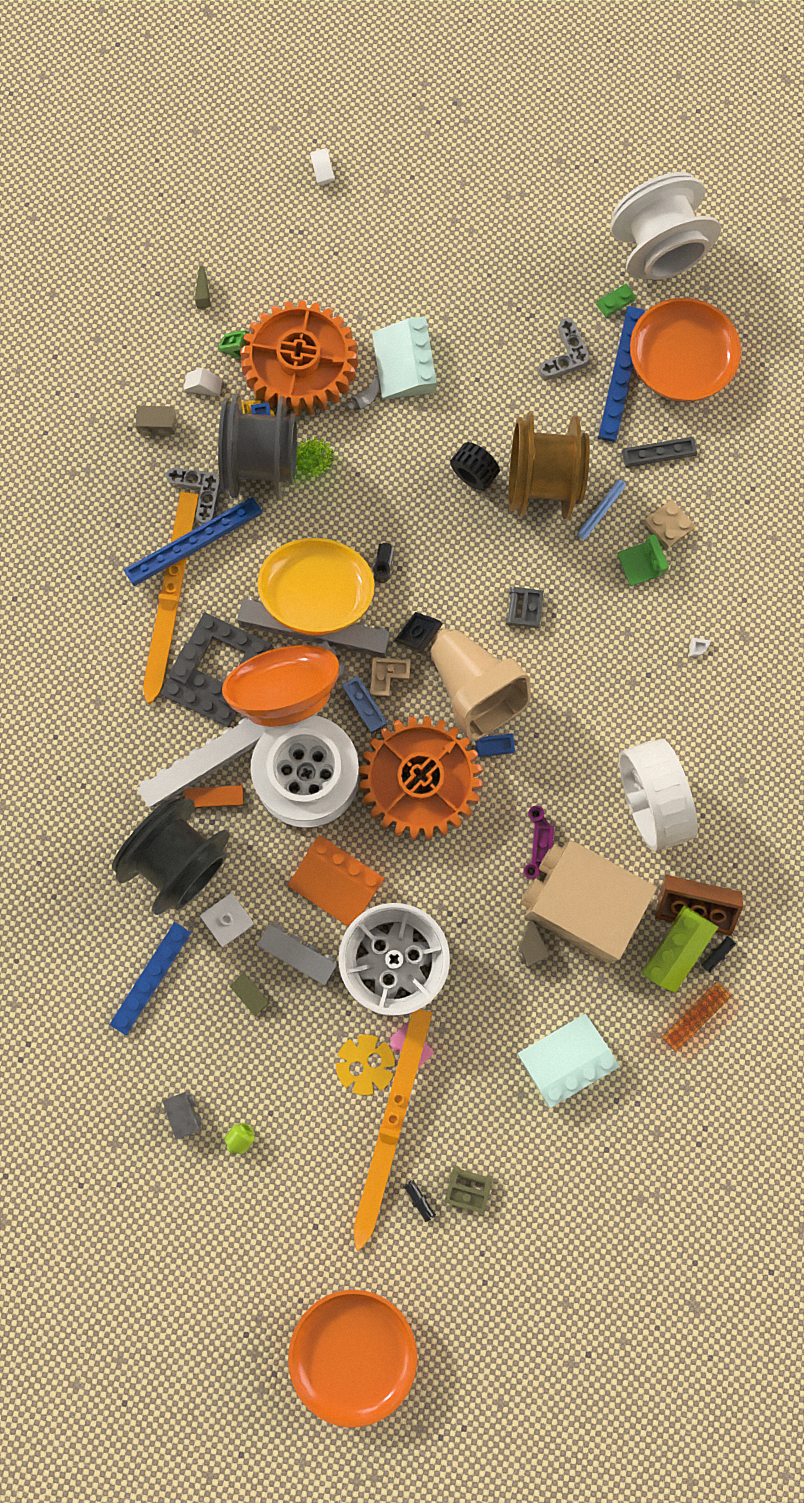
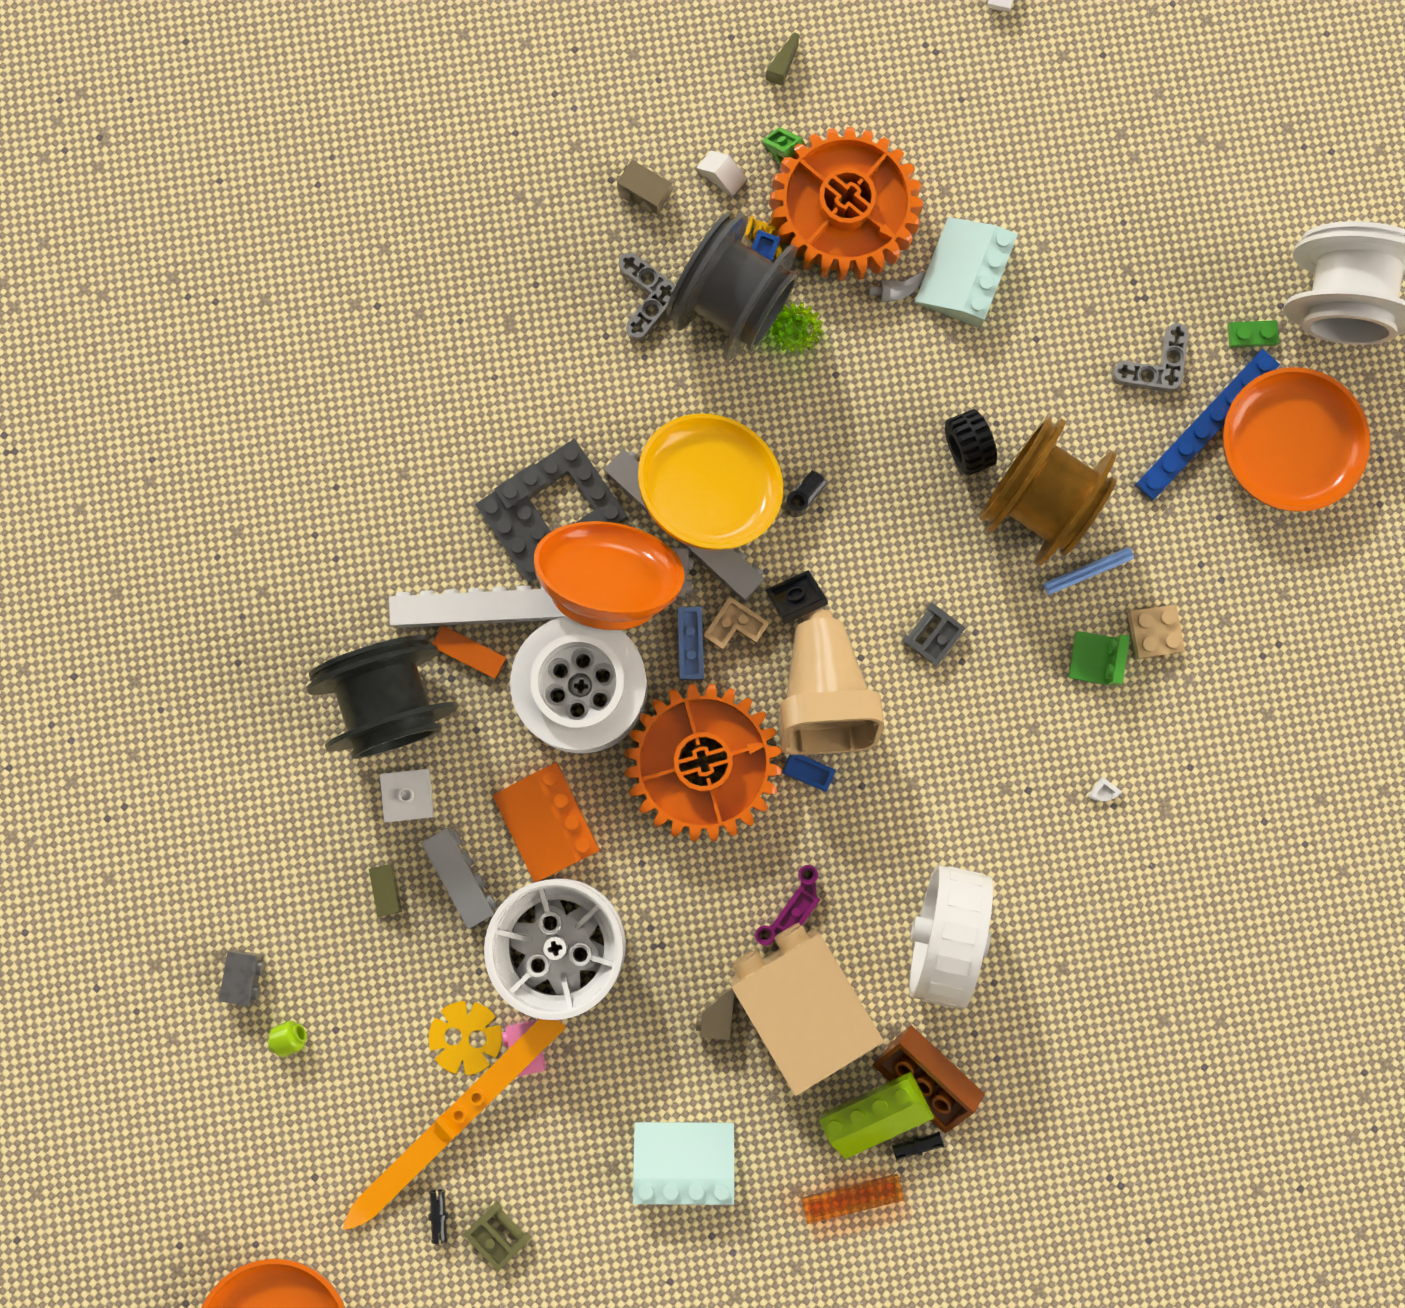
camera: 30 degrees right, 5 degrees up
(150, 978) = (290, 811): blue plate -> none
(168, 602) = (548, 397): light orange piece -> none
(193, 541) = (607, 351): blue plate -> none
(659, 452) = (1195, 541): dark grey tile -> none

